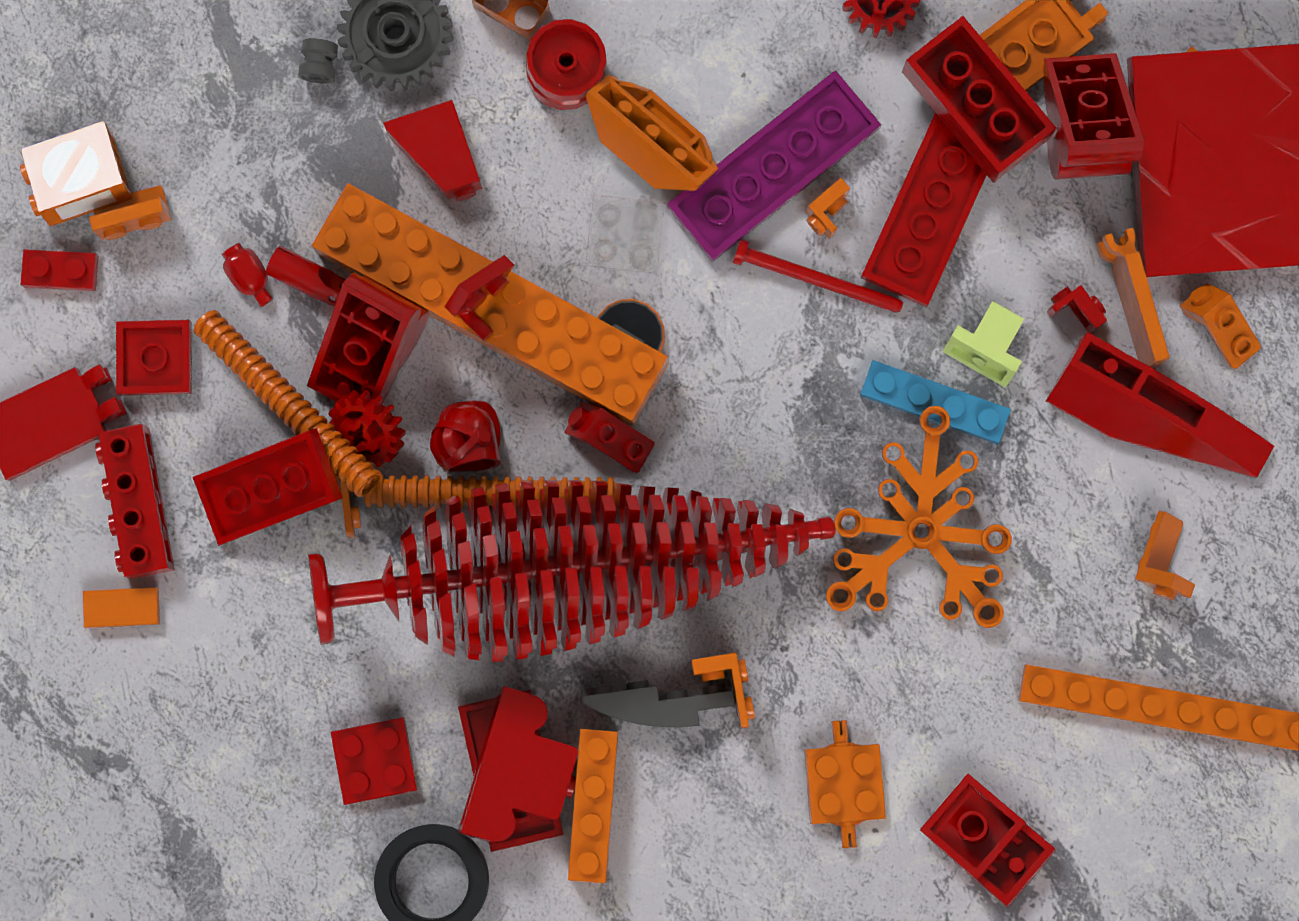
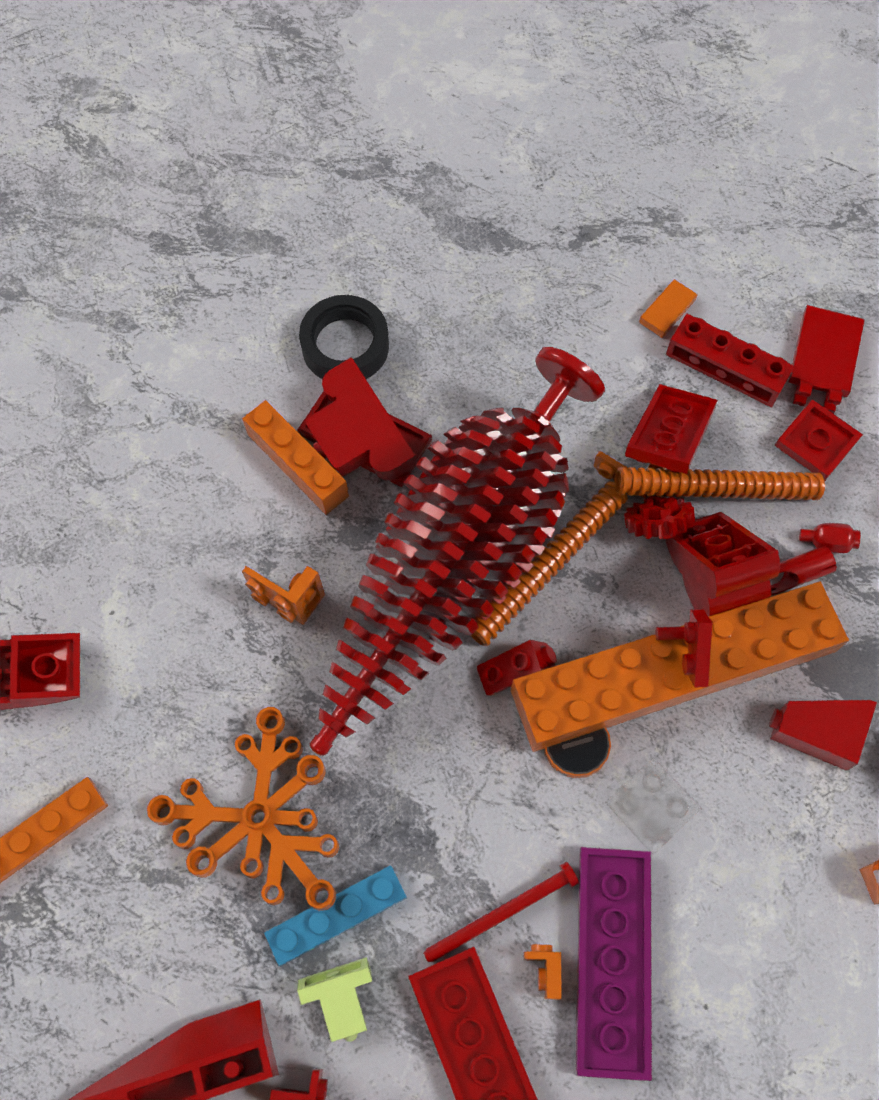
camera: 130 degrees right, 15 degrees down
(374, 761) = (445, 367): red plate -> none
(466, 437) = (599, 575): red helmet -> none
(565, 42) = (844, 871): red wheel -> none
(641, 704) = (322, 537): dark grey slope -> none
(650, 135) = (715, 886): orange wedge -> none
(844, 784) = (156, 617): orange plate -> none
(1157, 558) = (75, 967): orange bracket -> none

